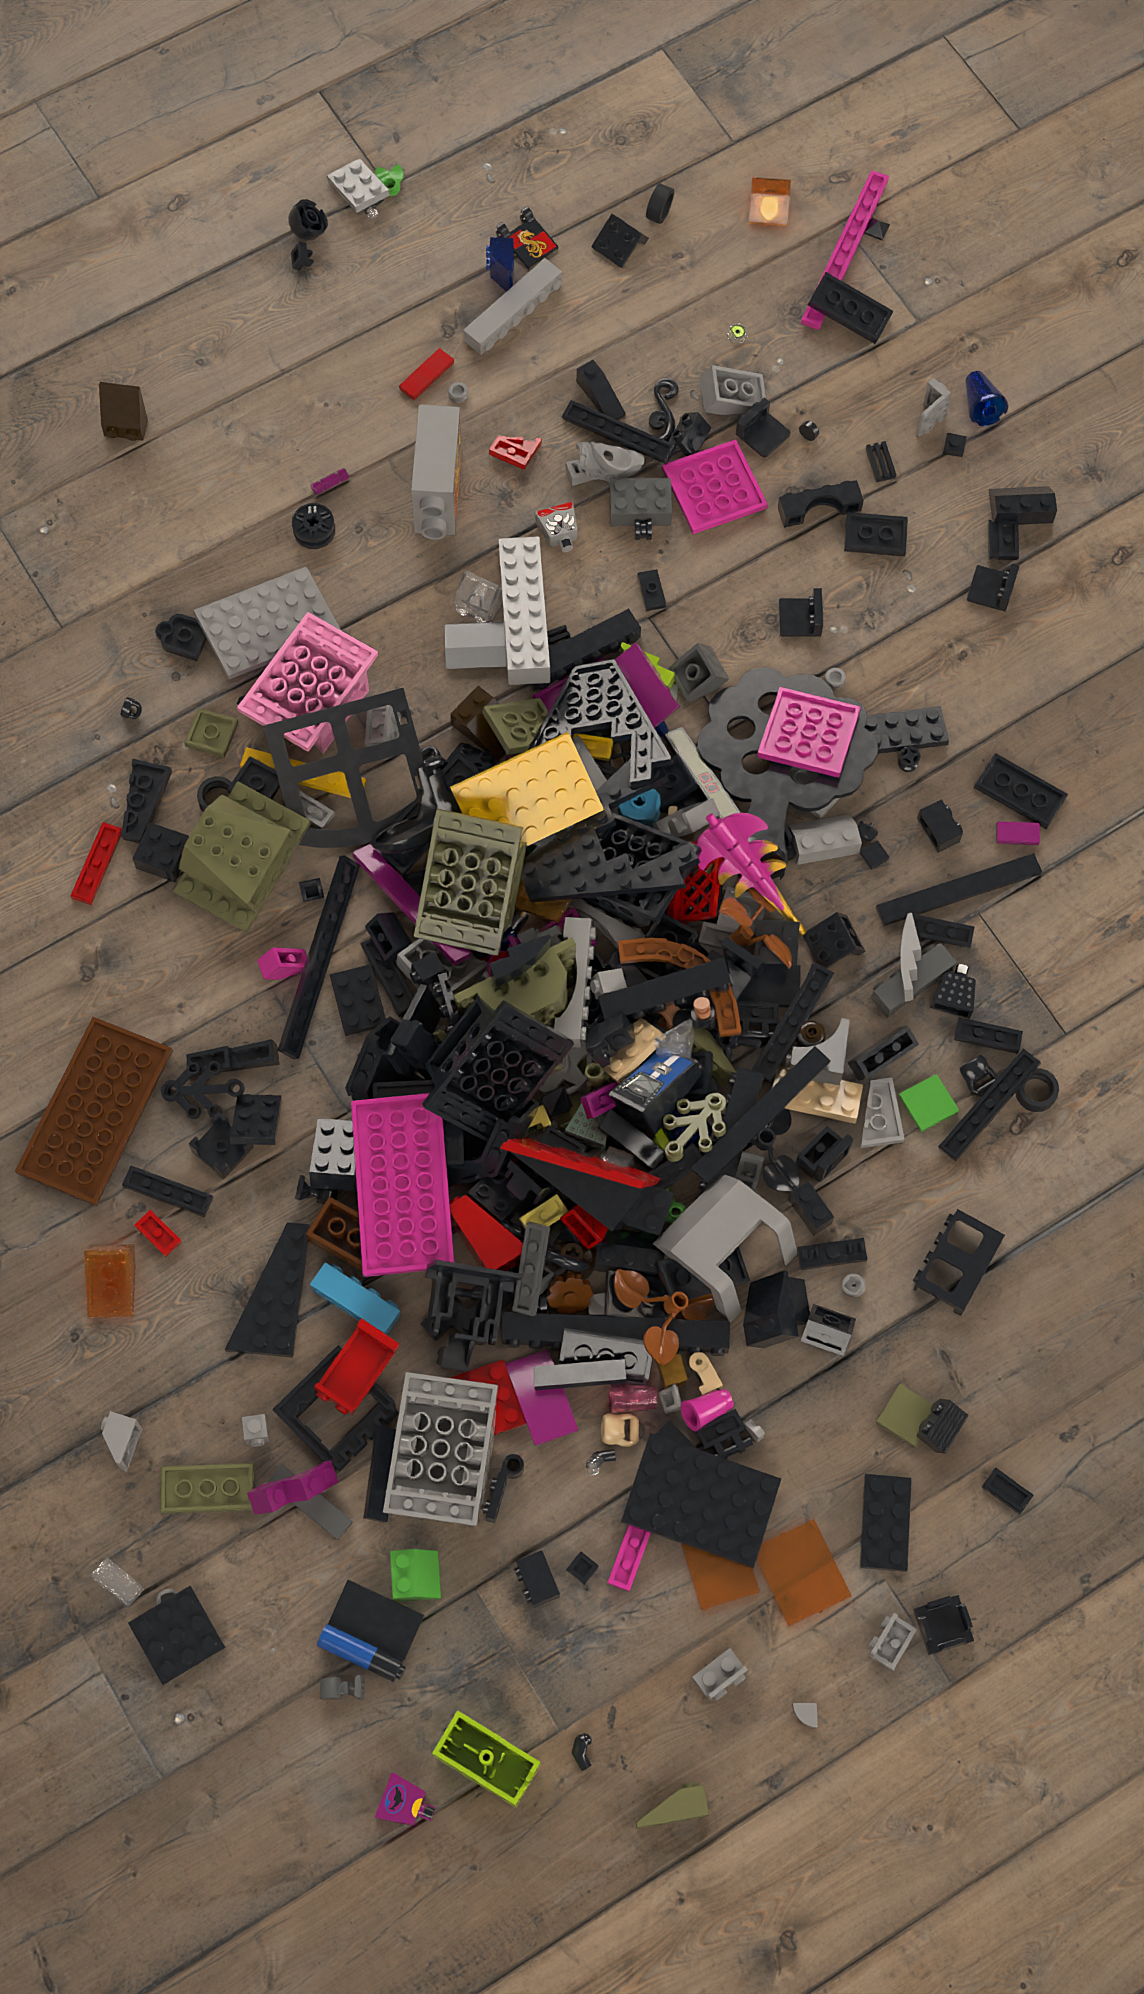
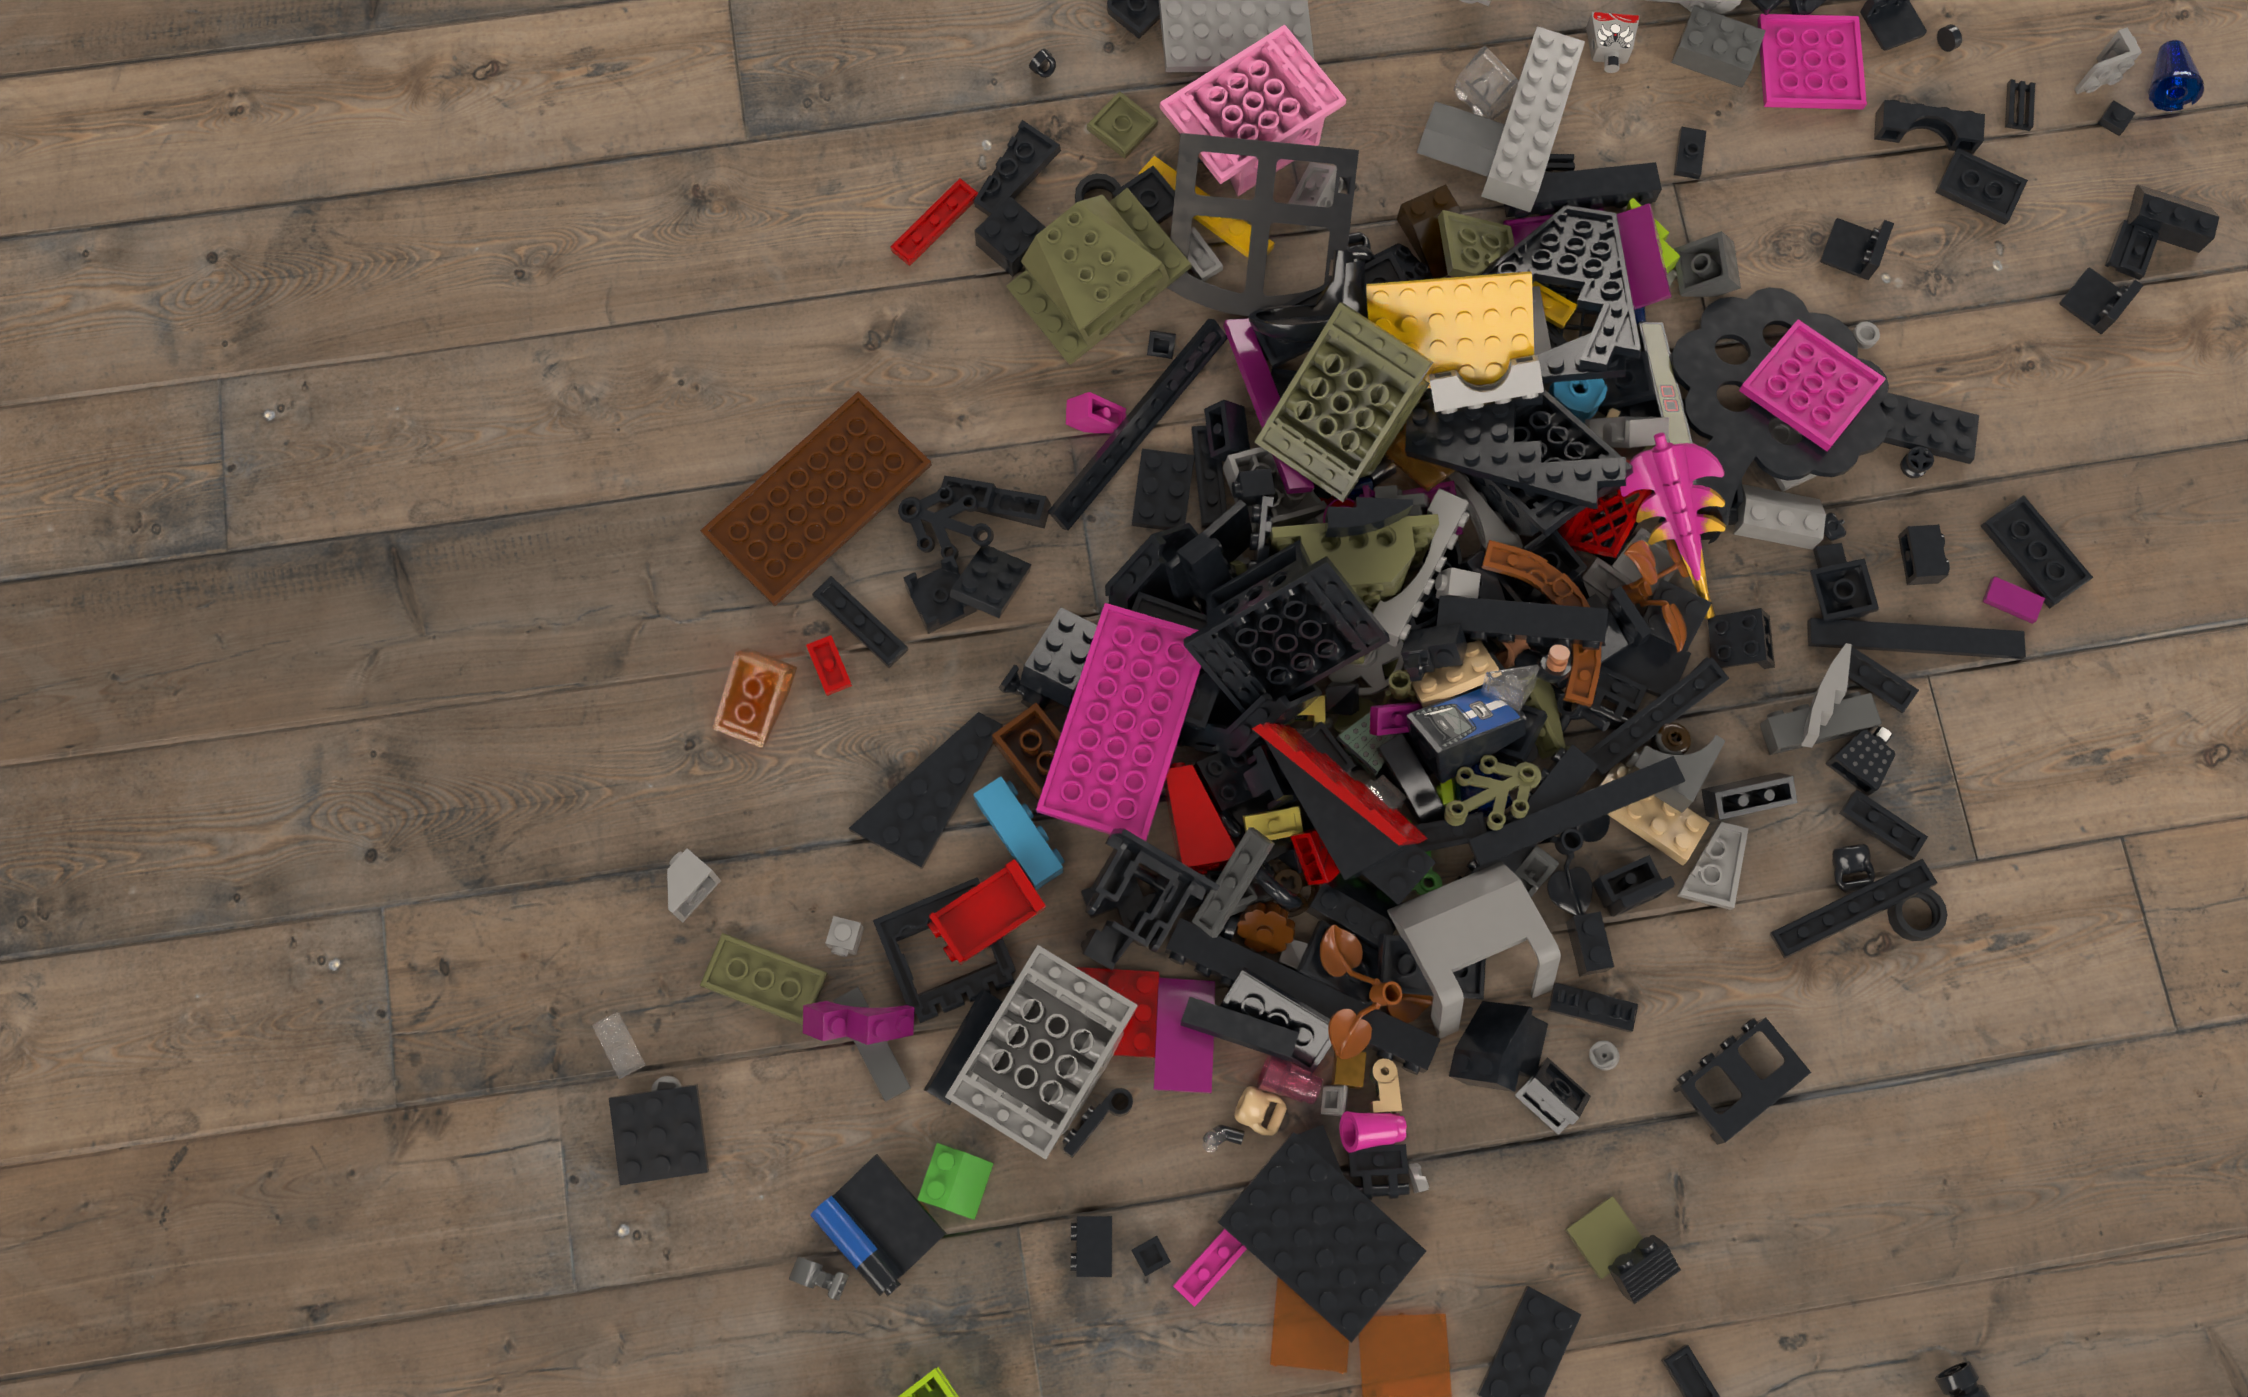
camera: 20 degrees right, 5 degrees up
(547, 841) = (1452, 391): none -> arch
(643, 529) = (1708, 79): black wheel -> none
(892, 875) = (1844, 590): none -> black slope
(928, 1103) = (1779, 876): bright green tile -> none

